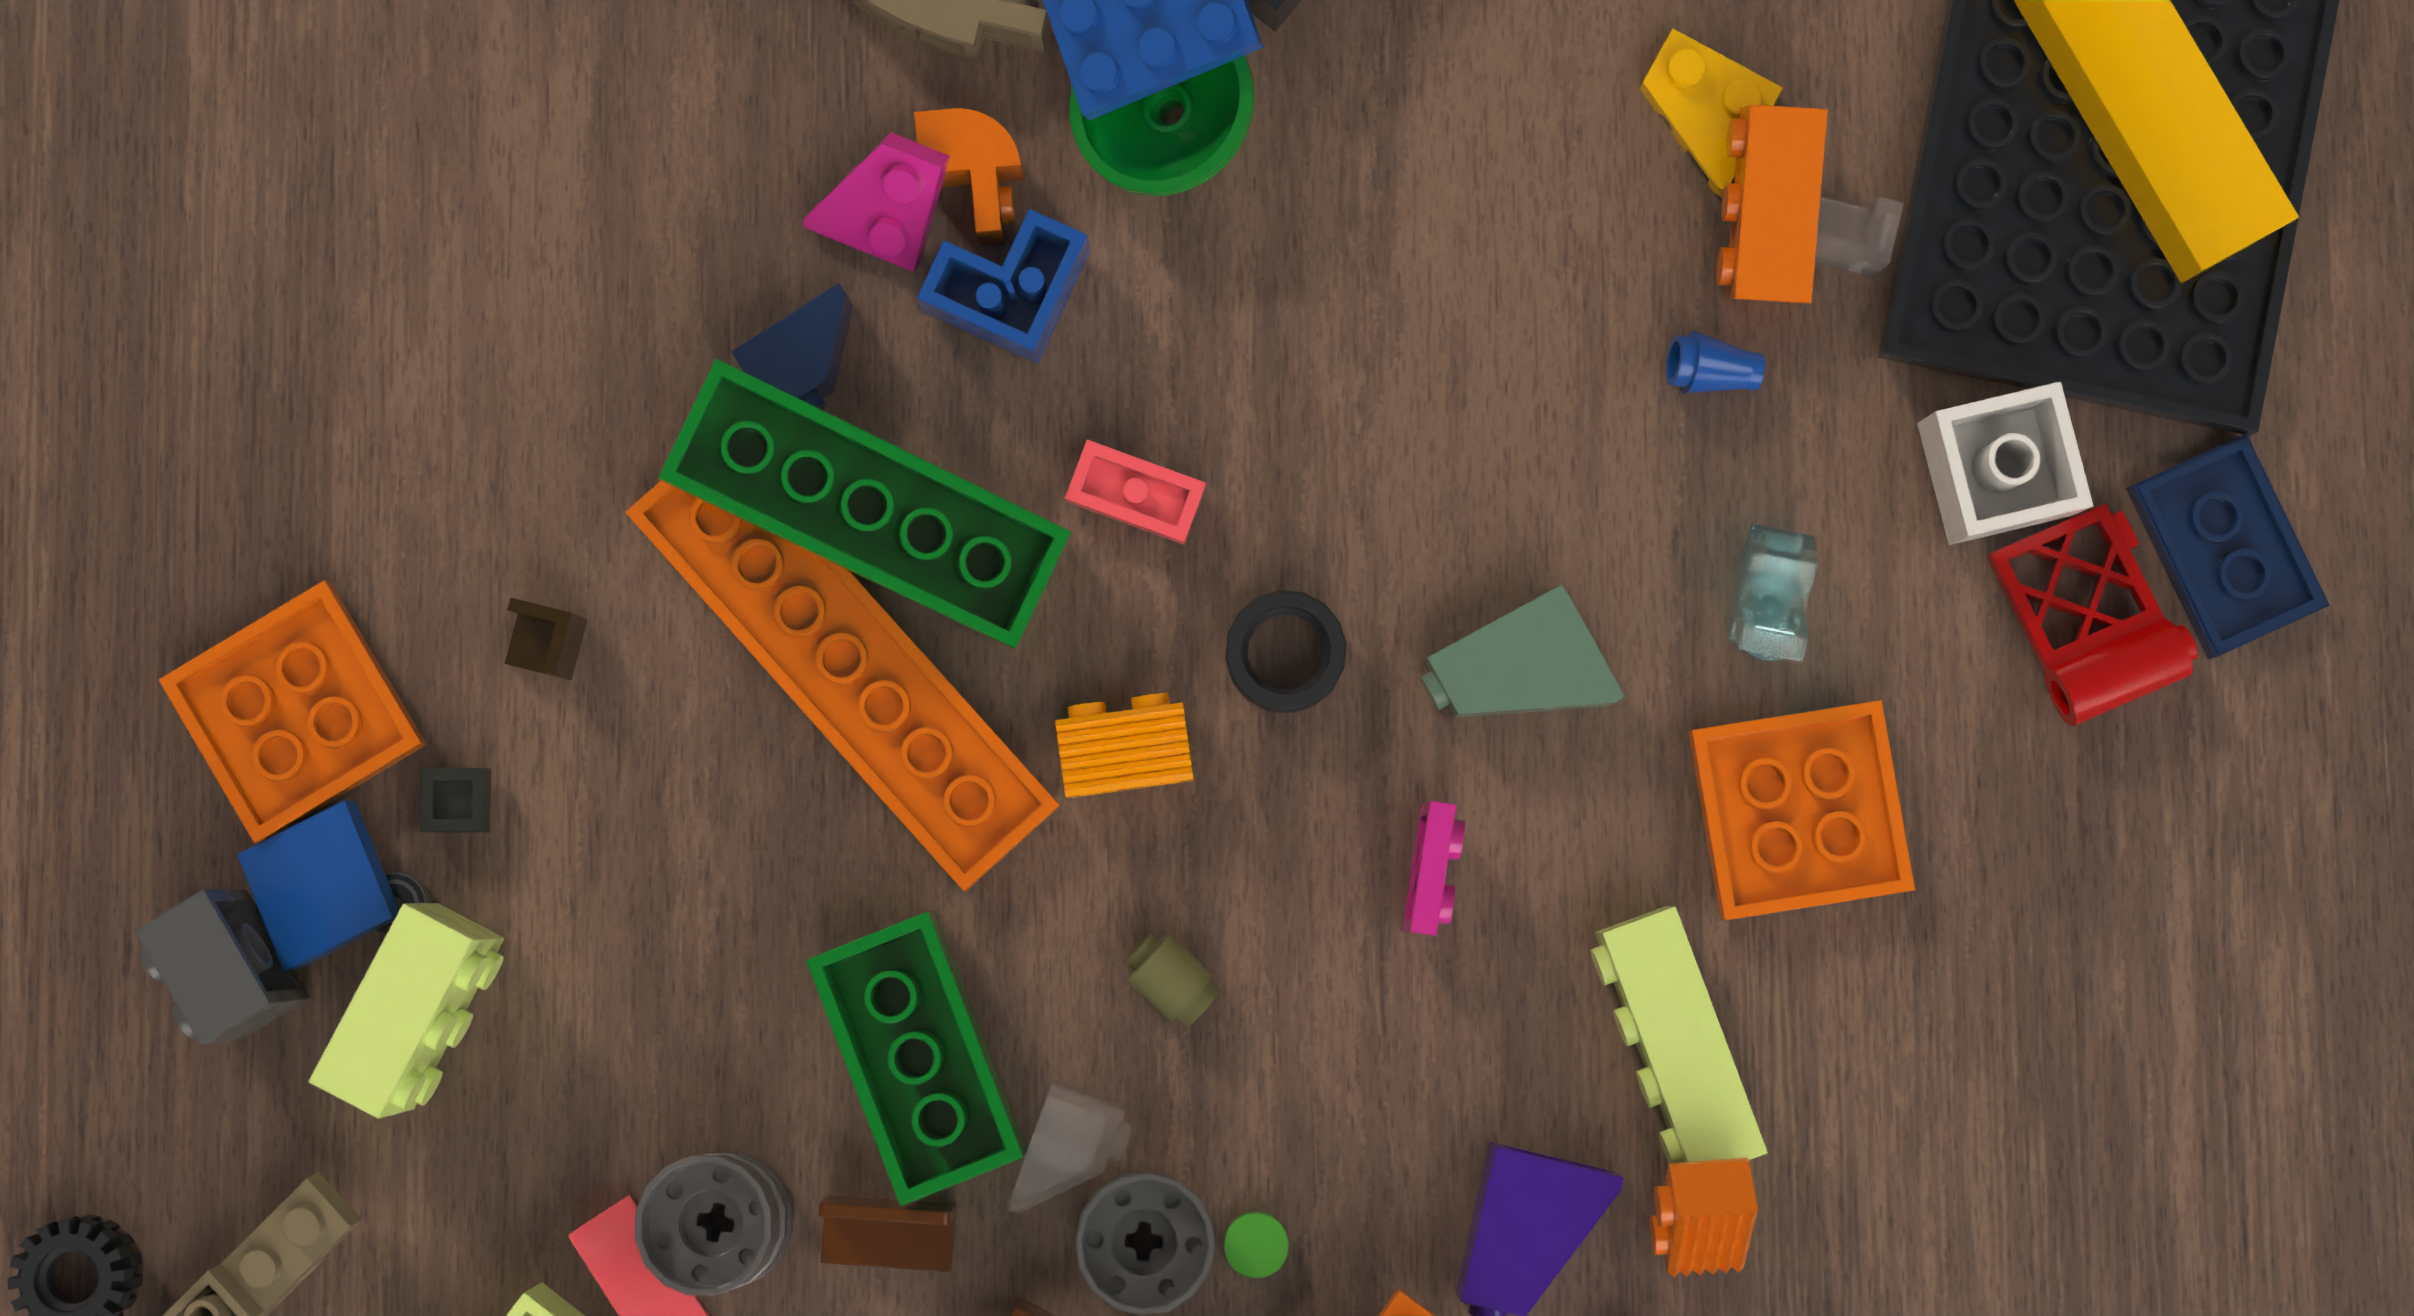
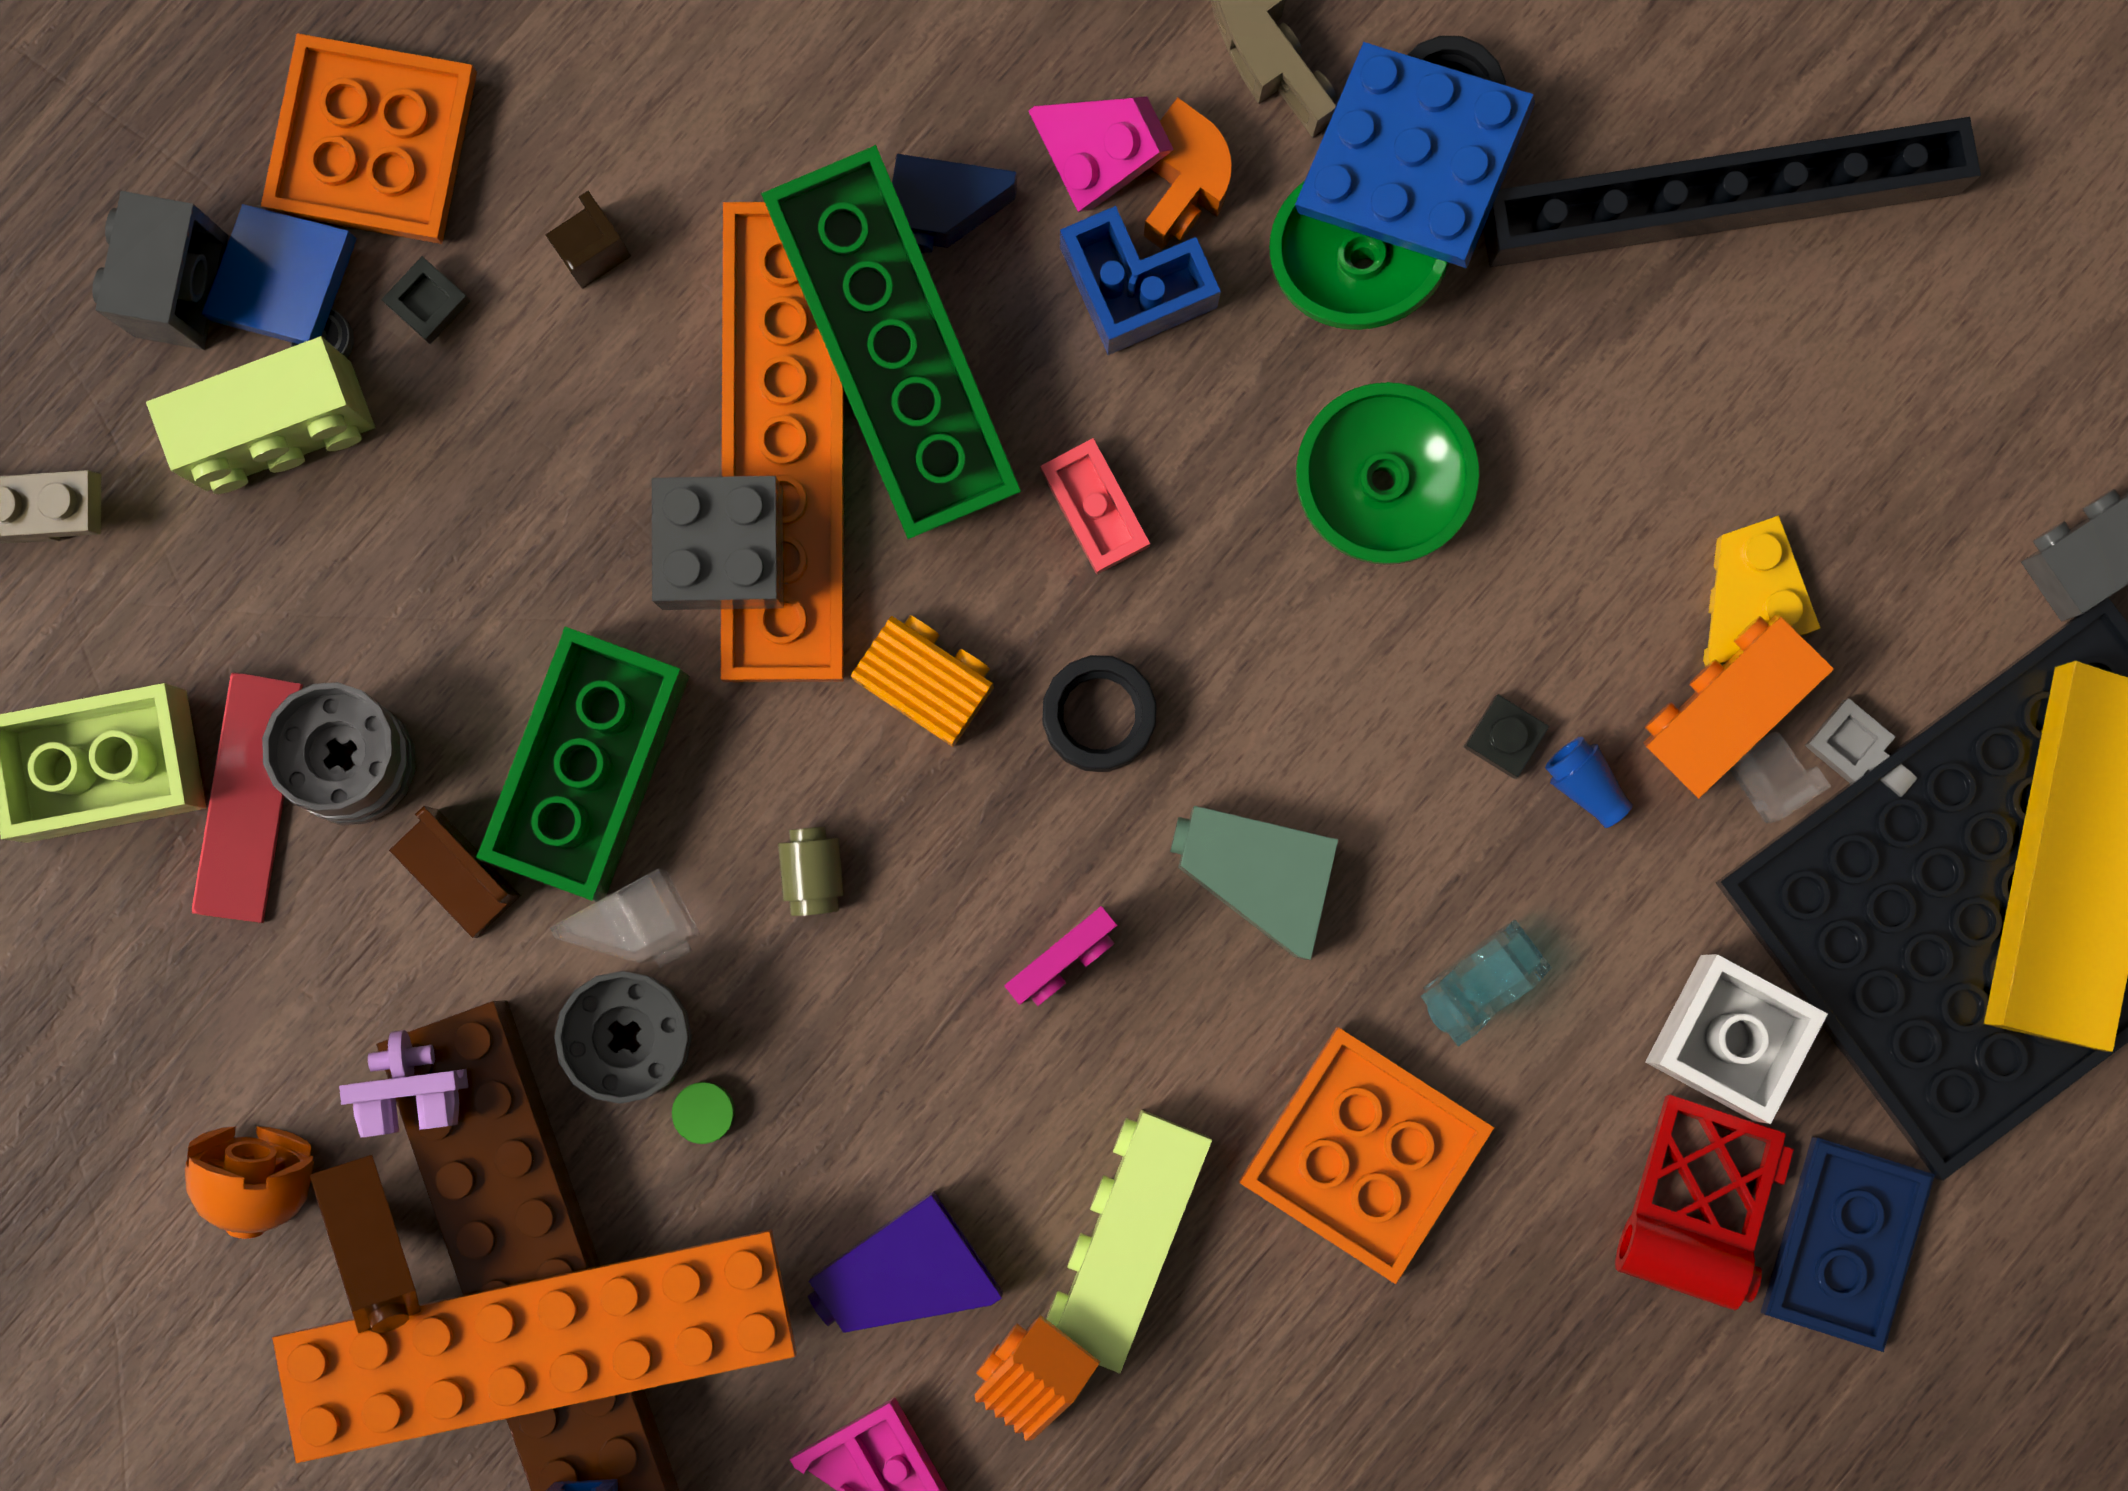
camera: 40 degrees right, 0 degrees up
(866, 785) = (717, 543): none -> dark grey brick
(1351, 221) = (1412, 440): none -> green dish
(1616, 387) = (1506, 736): none -> pearl dark grey plate
(1888, 154) = (1855, 744): none -> light grey plate

